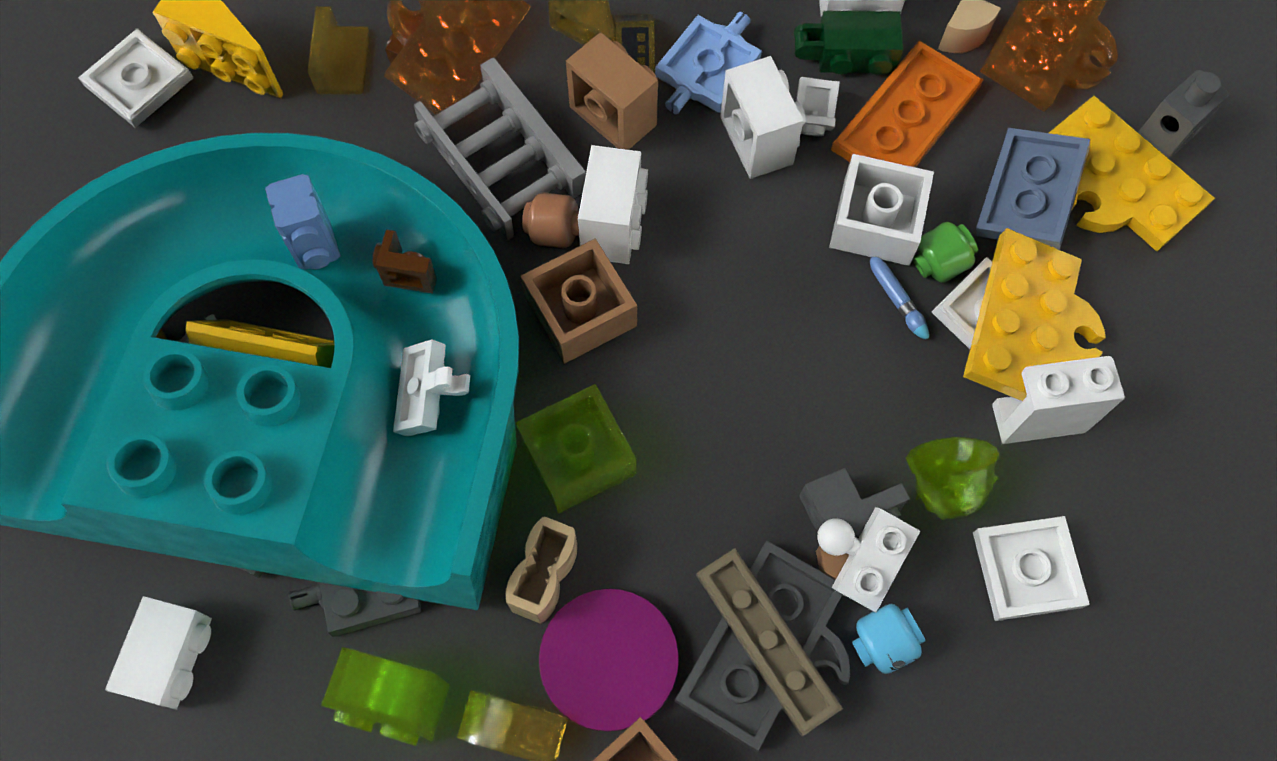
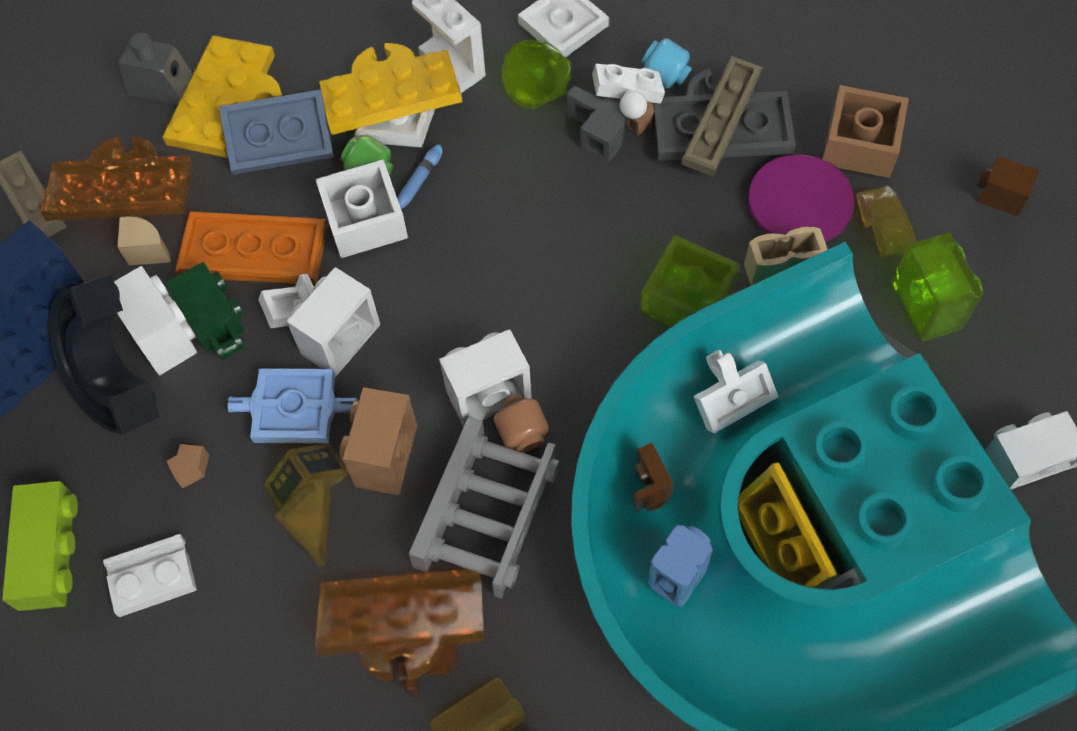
camera: 120 degrees left, 5 degrees down
(579, 300) = (578, 355): medium nougat brick -> none

